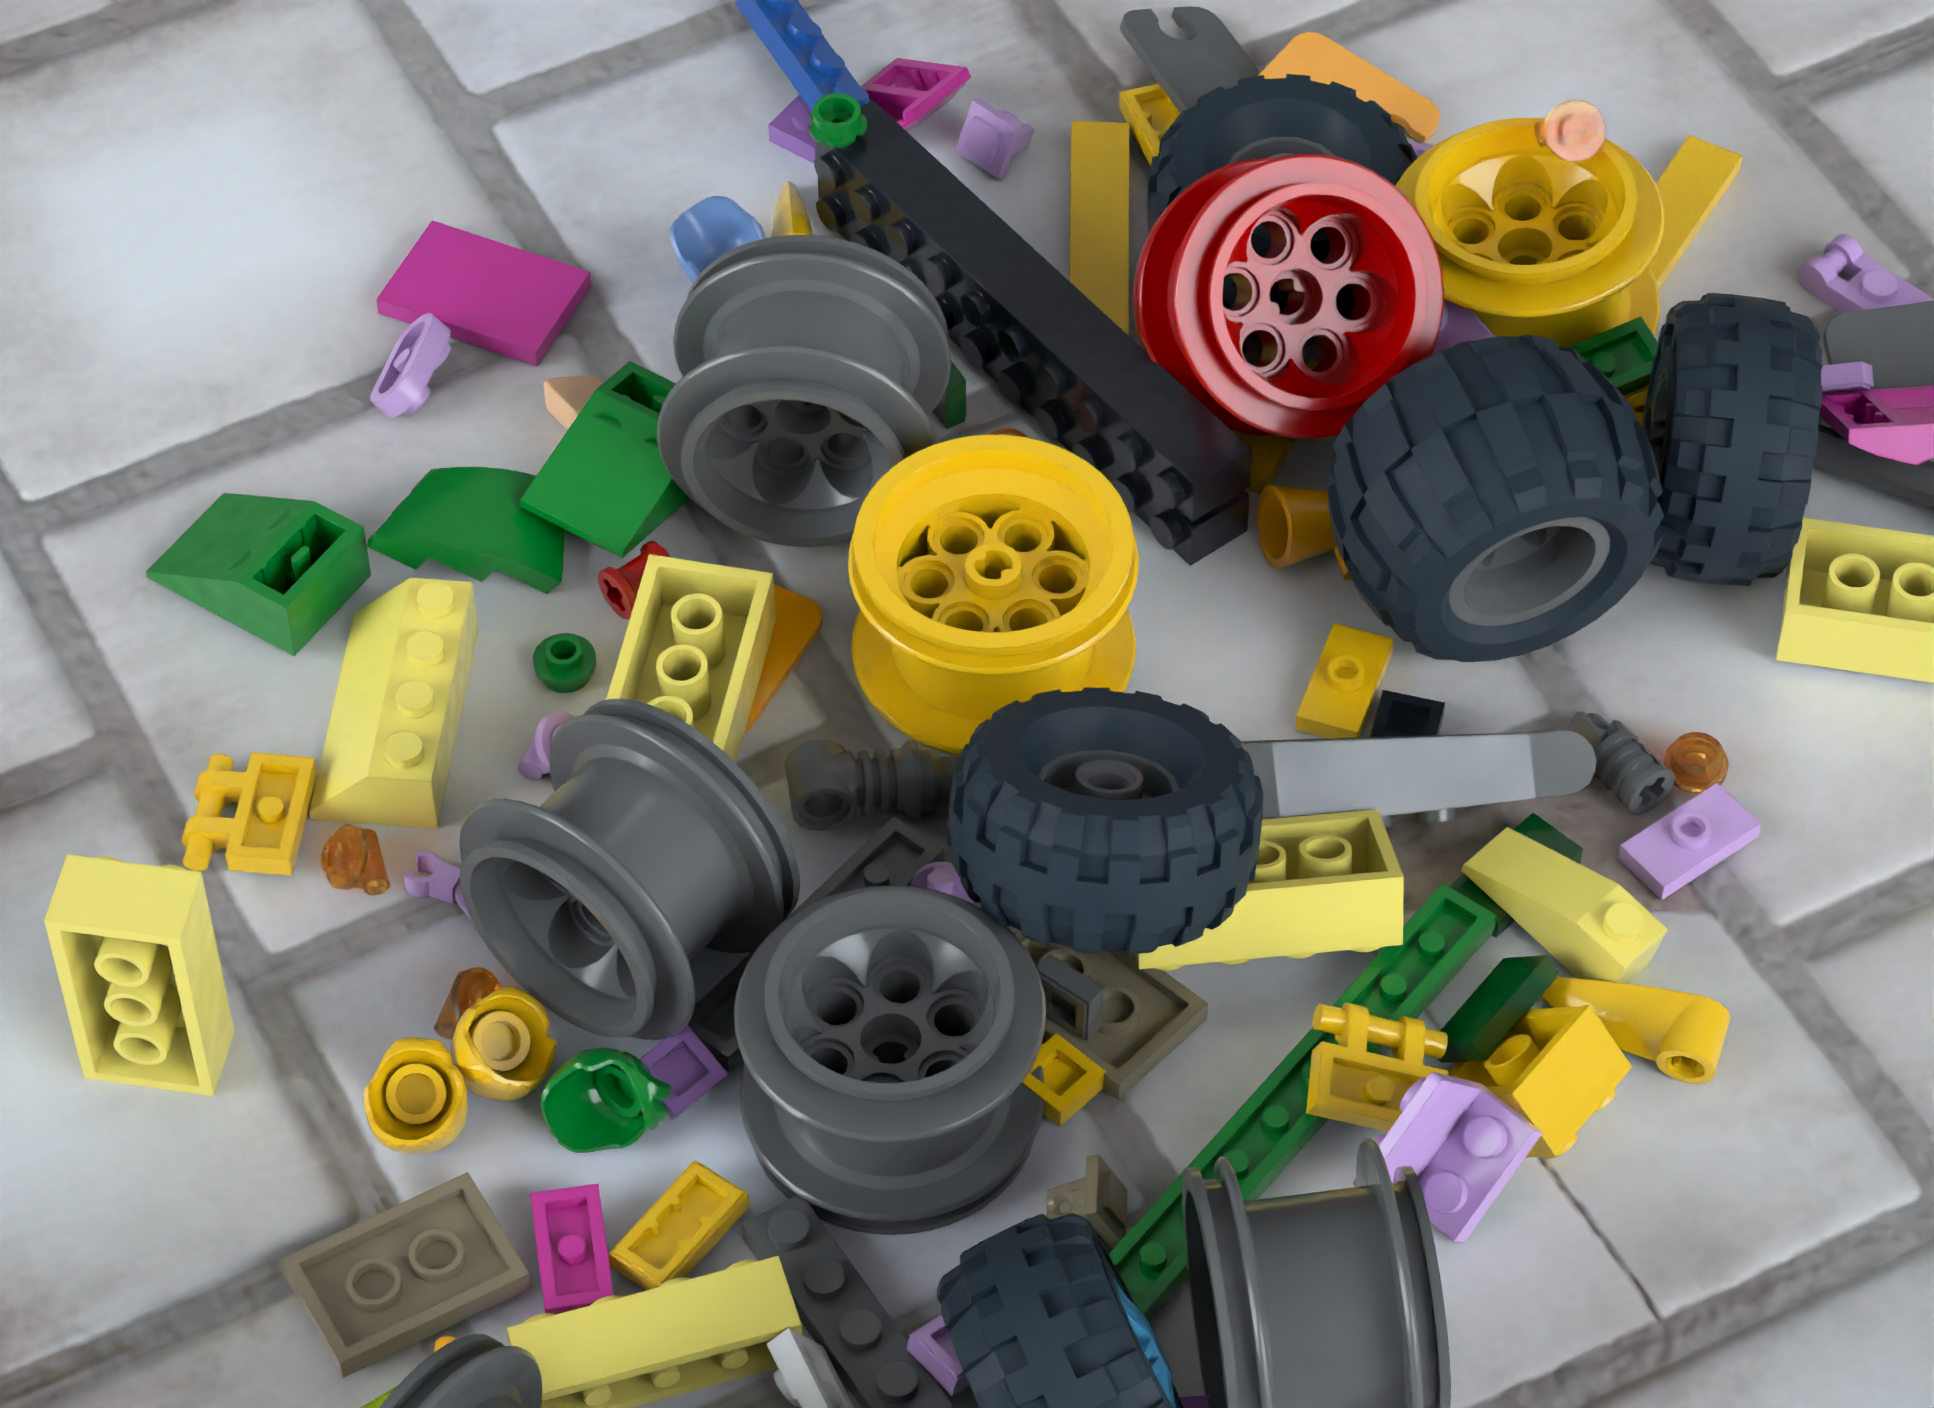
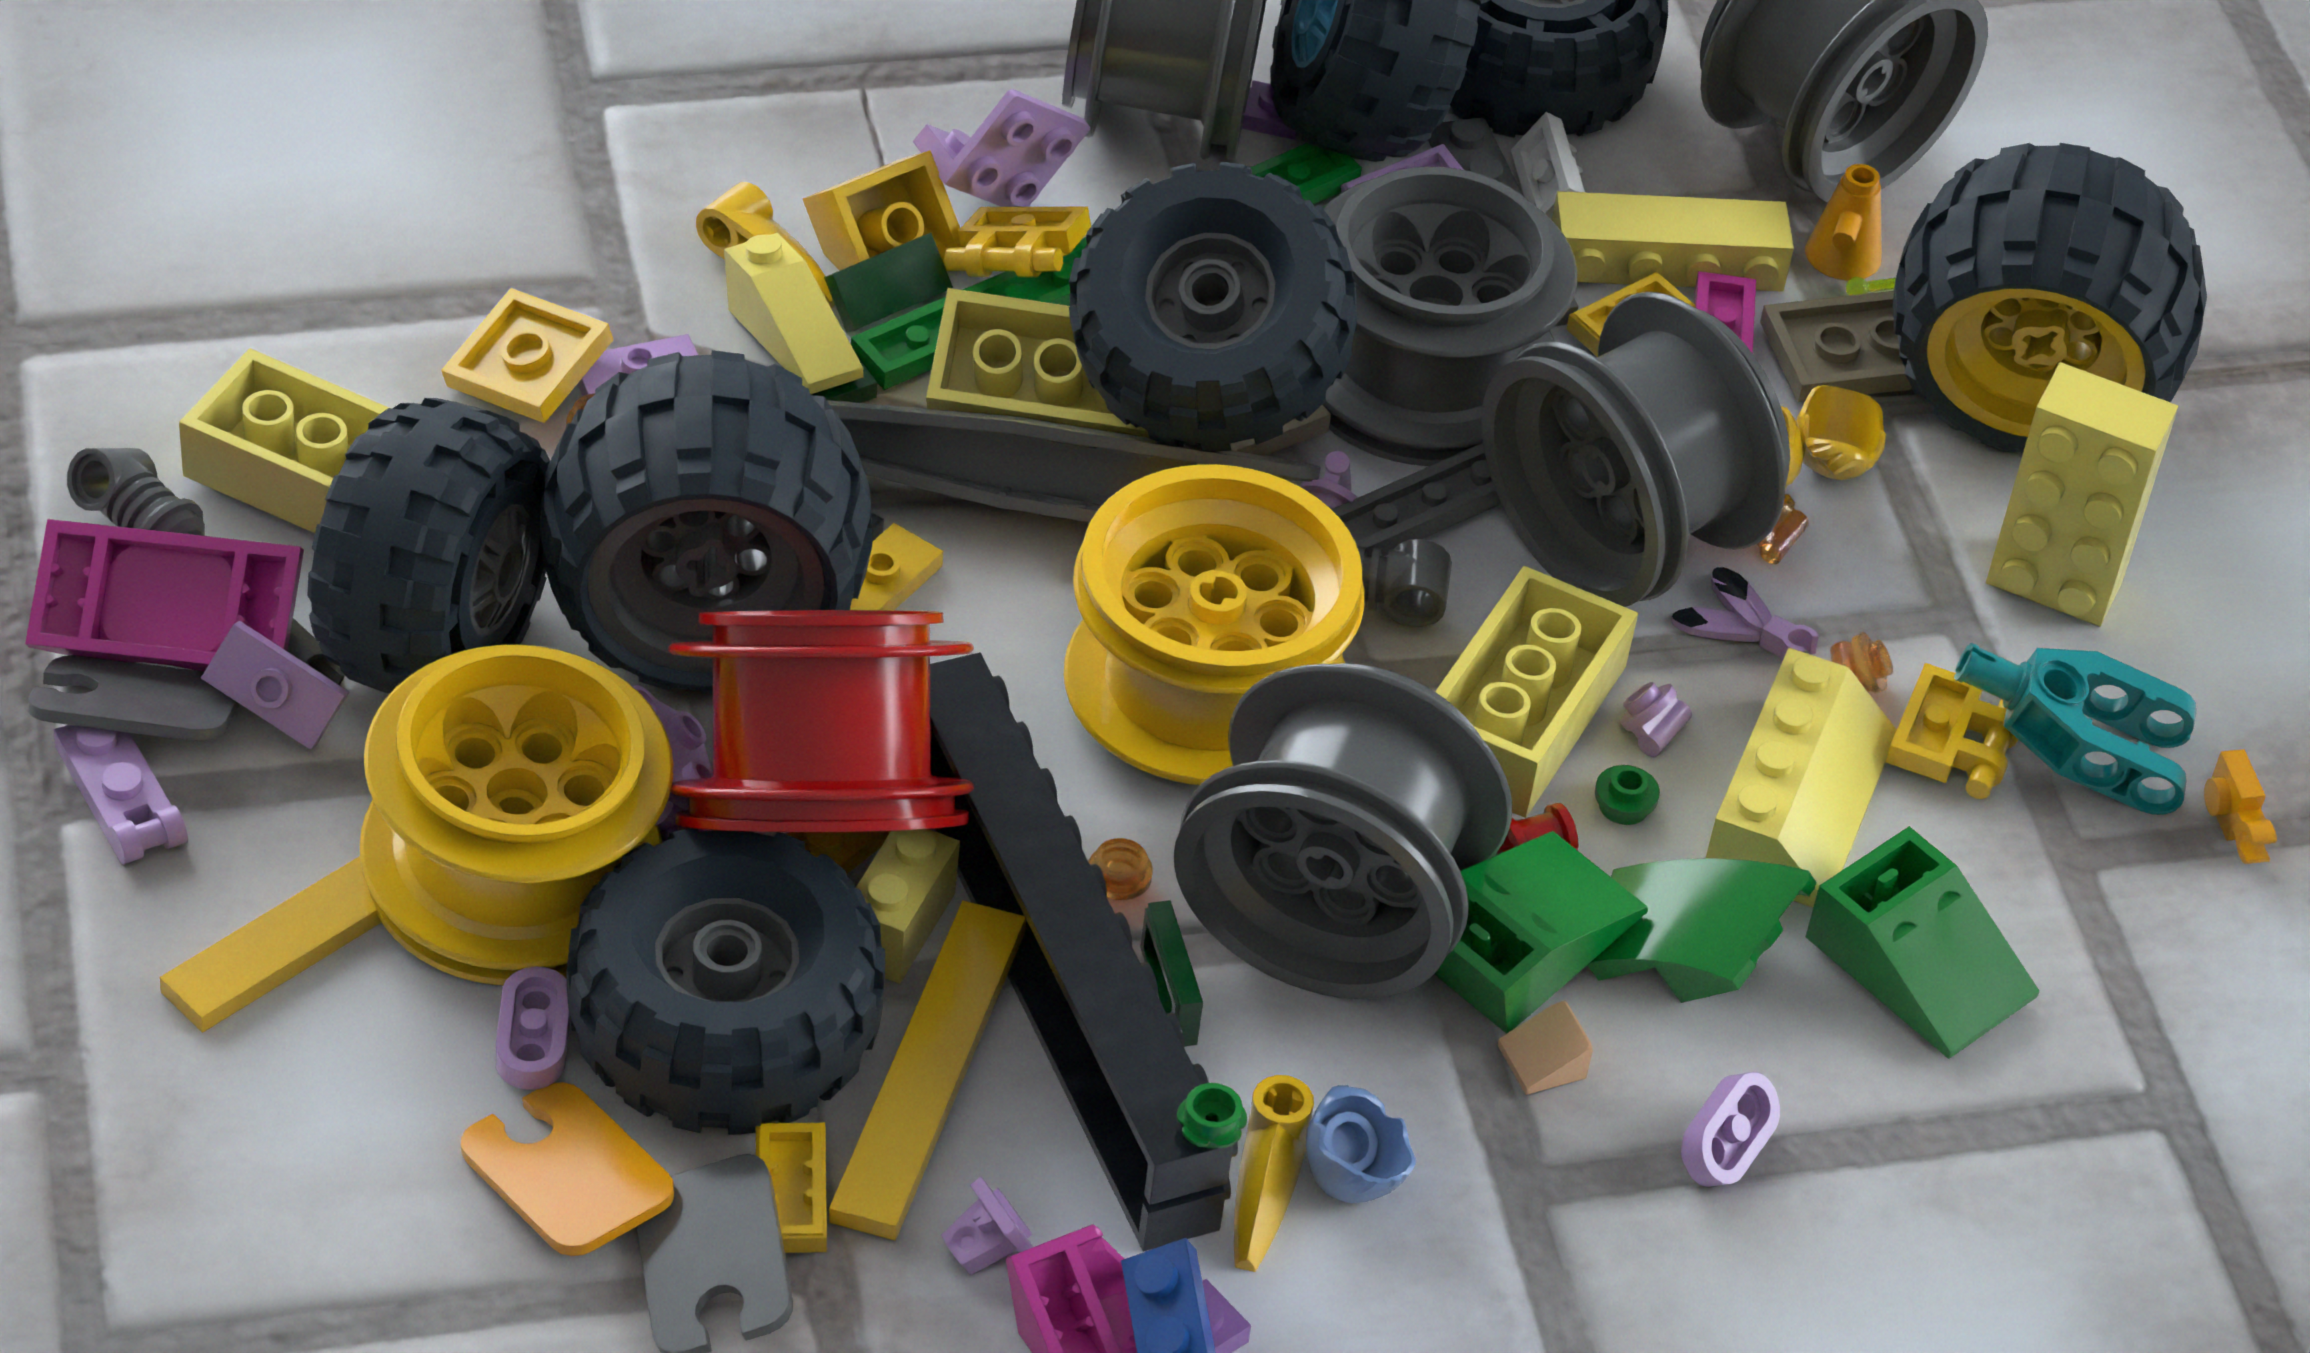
camera: 170 degrees left, 5 degrees down
(156, 811) = (2048, 710): none -> teal piece
(193, 1197) = (2040, 267): none -> black wheel
(485, 292) = (1630, 1218): dark pink tile -> none
(1572, 130) = (441, 761): clear orange plate -> none
(1799, 792) = (527, 355): none -> yellow plate

